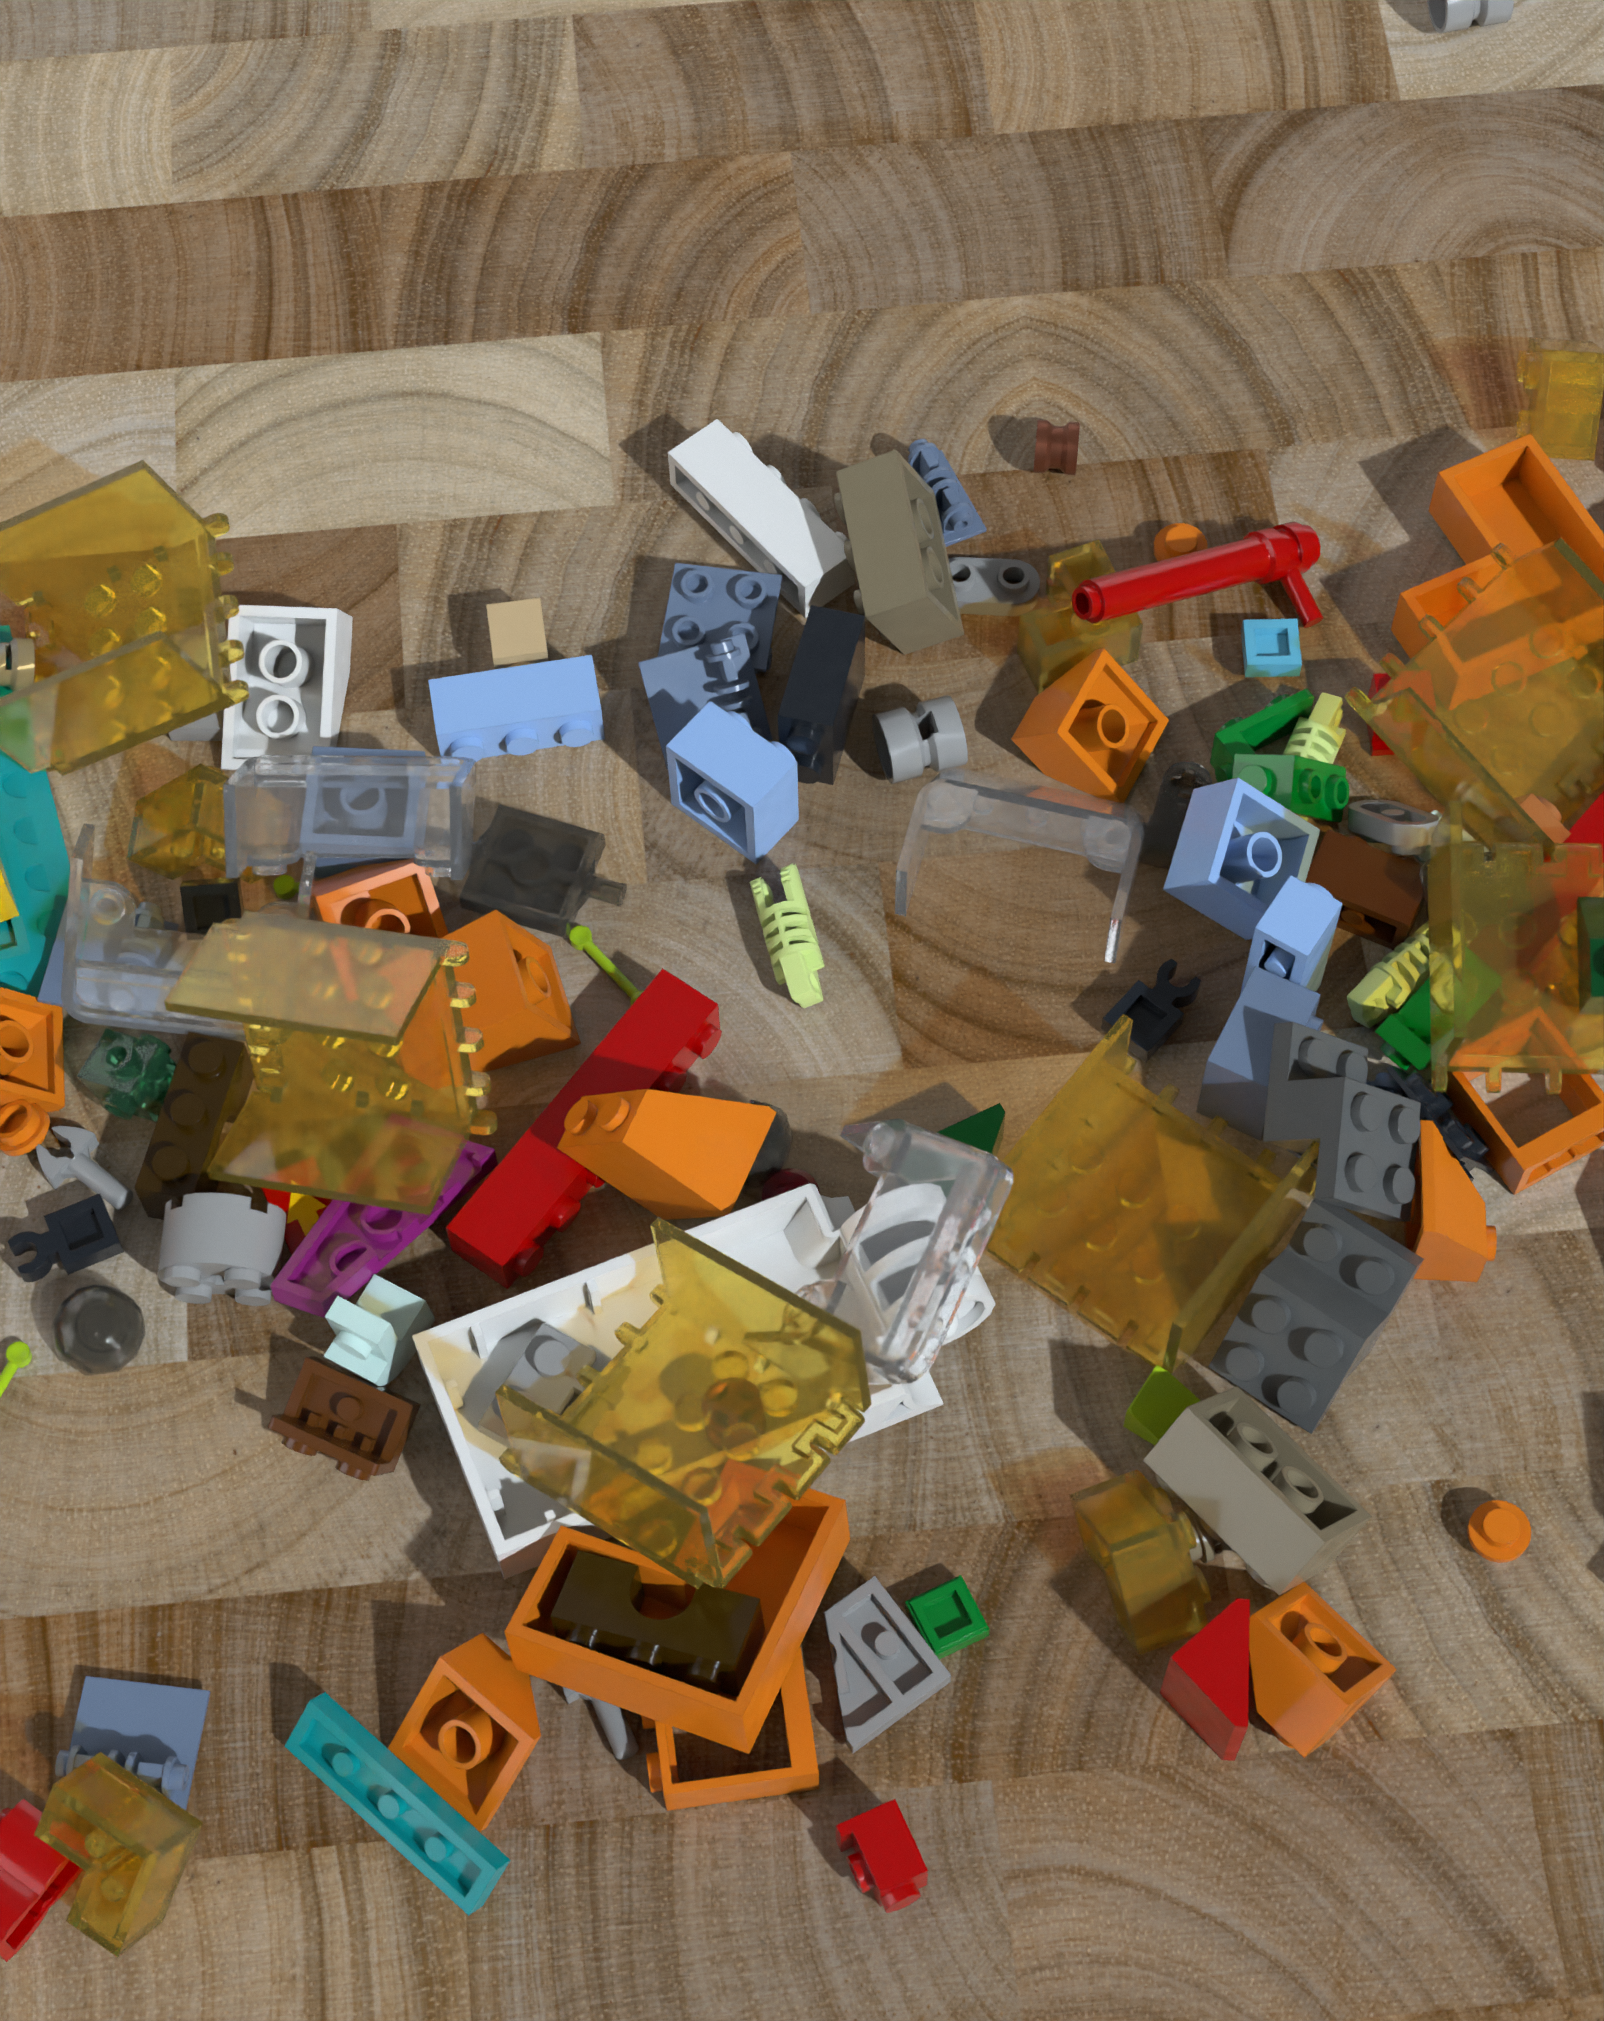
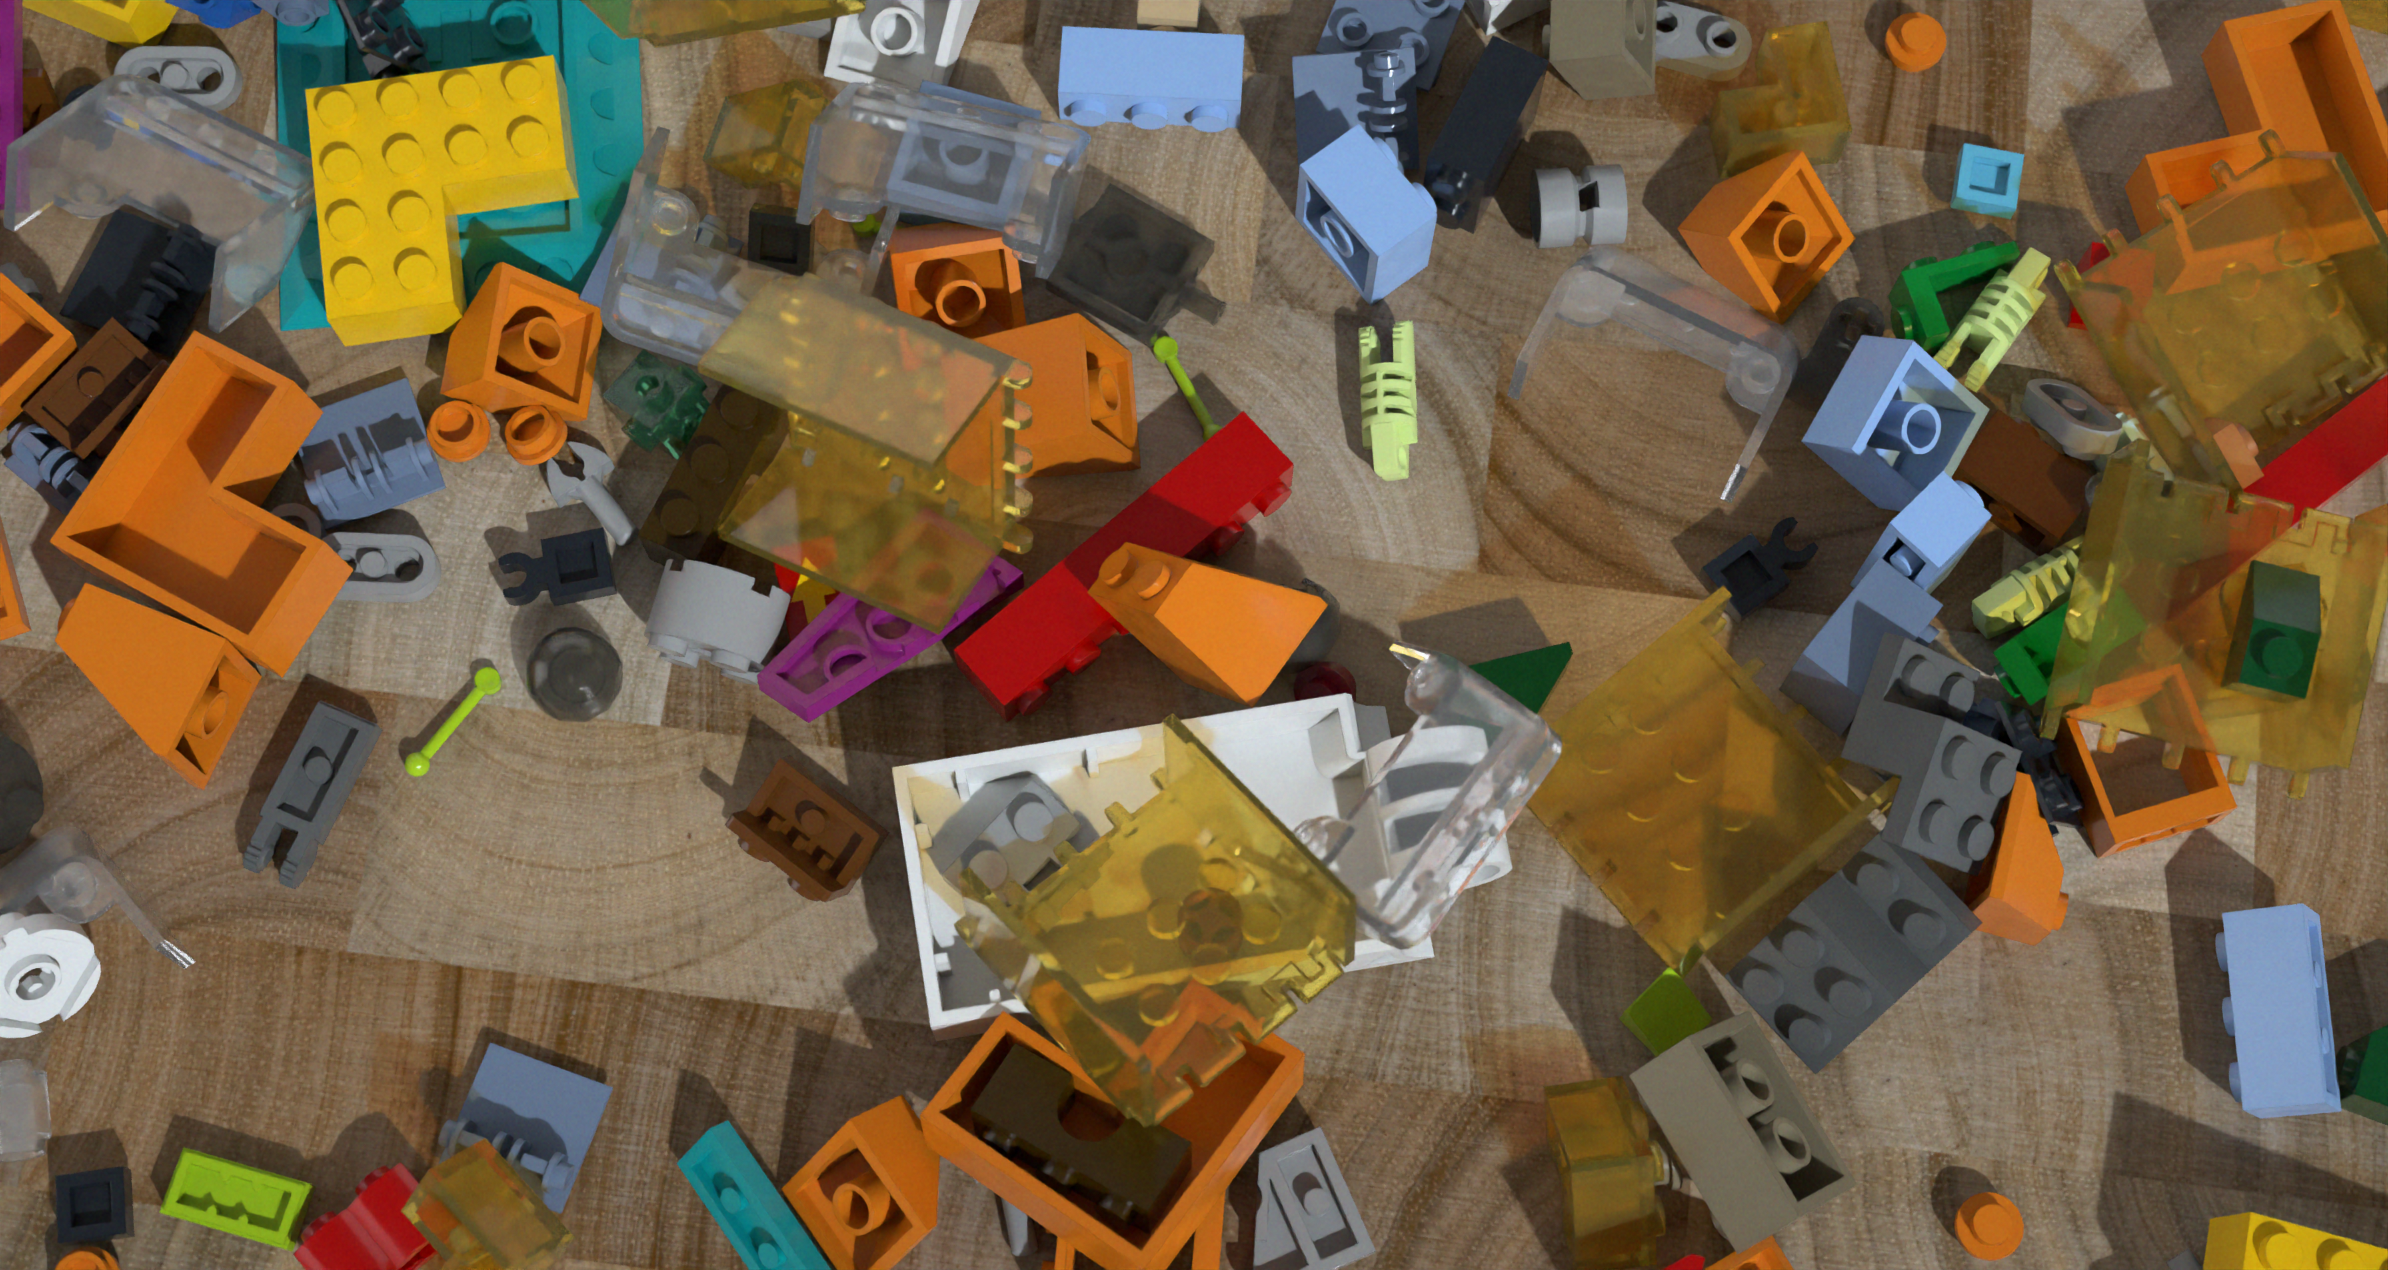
camera: 10 degrees right, 10 degrees up
(377, 1330) = (860, 746): light aqua brick -> none
(947, 1617) = (1386, 1184): green tile -> none
(1260, 558) = (2002, 75): red cylinder -> none
(1297, 783) = (1973, 351): green bracket -> none

